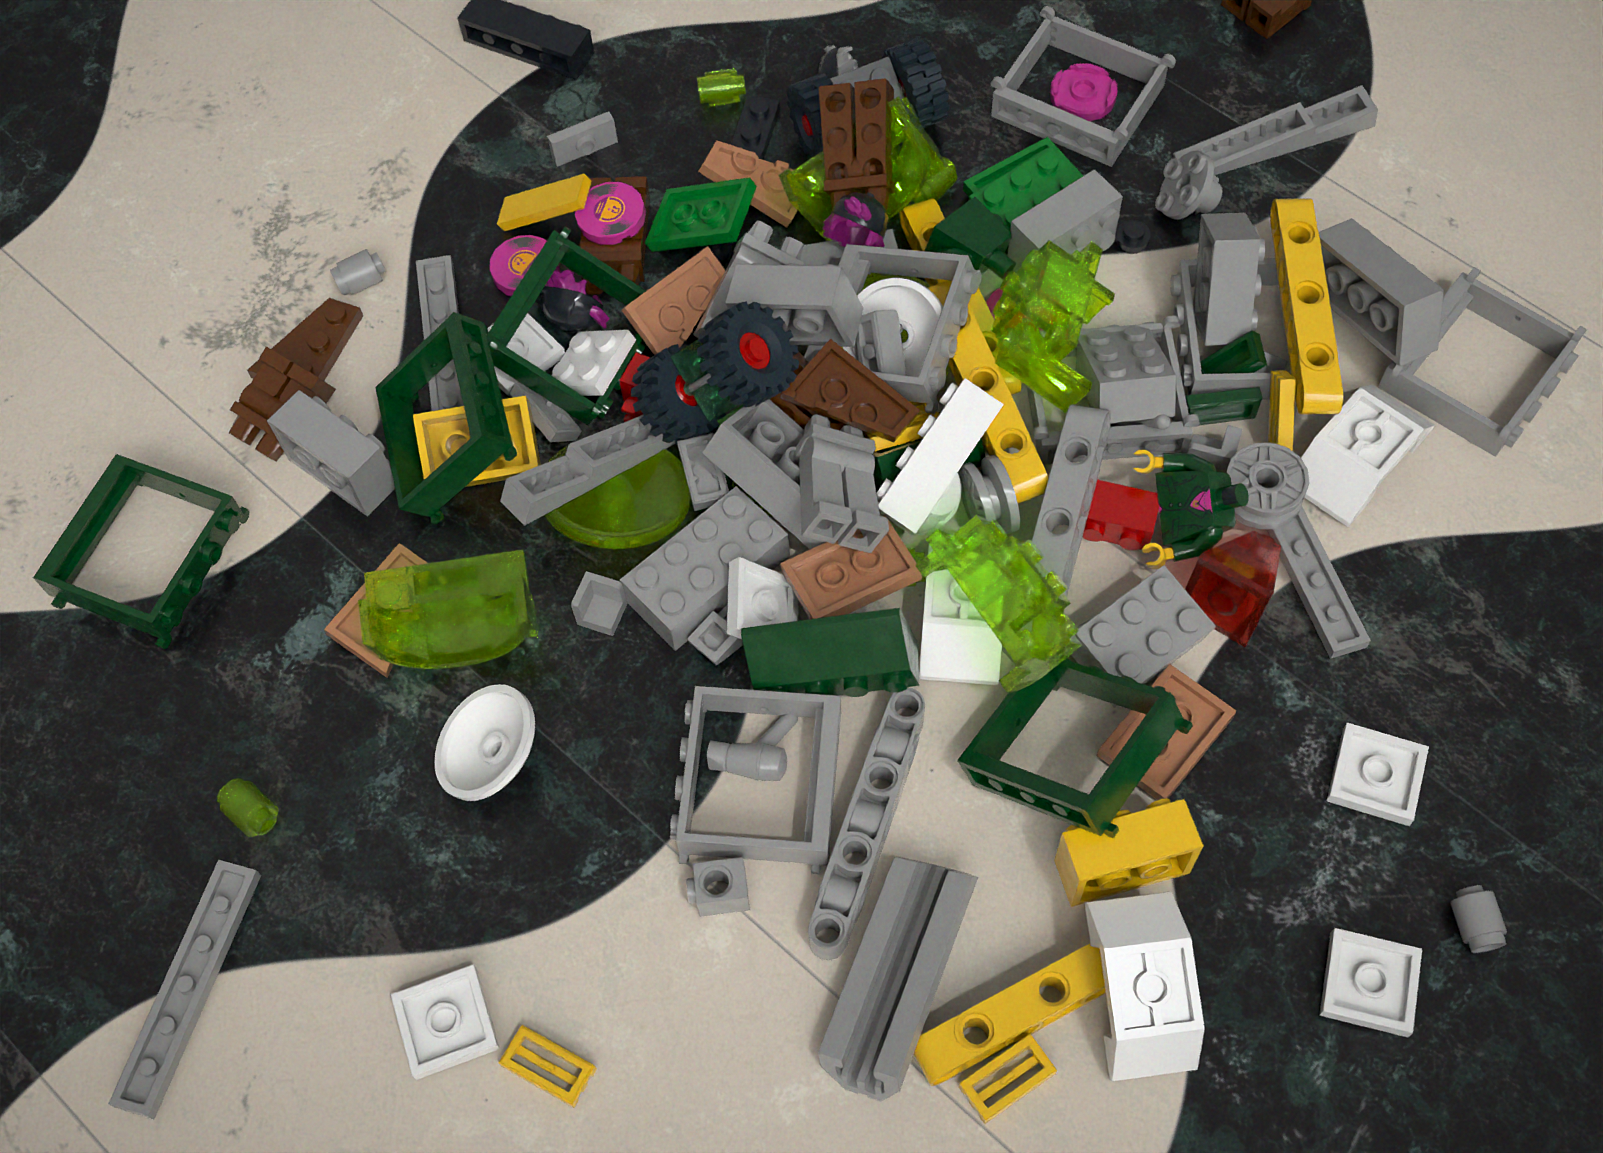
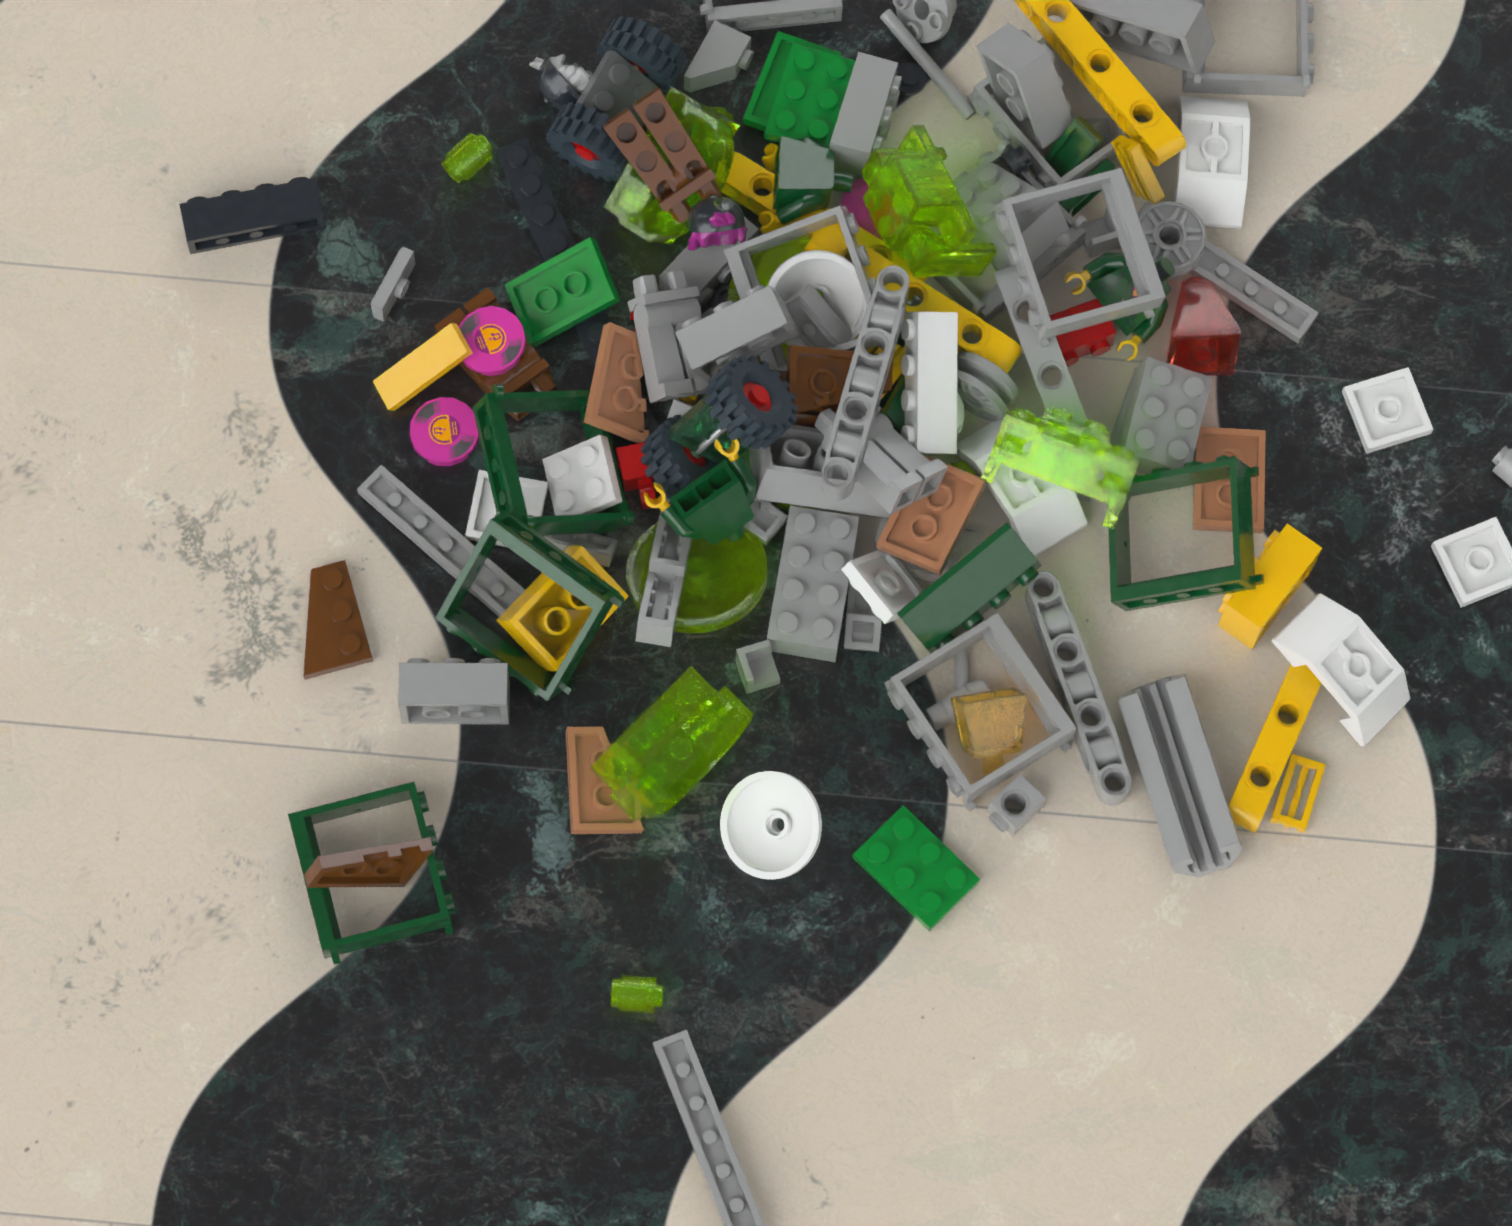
camera: 45 degrees left, 10 degrees up
(132, 537) = (370, 867): none -> reddish brown wing
(267, 393) = (364, 696): reddish brown hips -> none
(358, 272) = (315, 531): light grey brick -> none
(444, 1022) = (907, 1028): white plate -> none
(567, 304) = (529, 441): black hair -> none
(578, 1084) = (967, 1011): yellow tile -> none
(585, 880) = (916, 868): none -> green plate
(662, 432) = (713, 504): none -> dark green torso
(731, 163) = (568, 226): nougat wing -> none
(754, 792) = (991, 724): none -> clear yellow torso
(864, 405) = (865, 382): none -> light grey beam
(980, 130) = (718, 58): none -> light grey slope
(1157, 233) = (927, 64): none -> light grey bar
(1171, 334) = (1016, 159): none -> black plate
(1235, 388) = (1130, 236): none -> light grey window

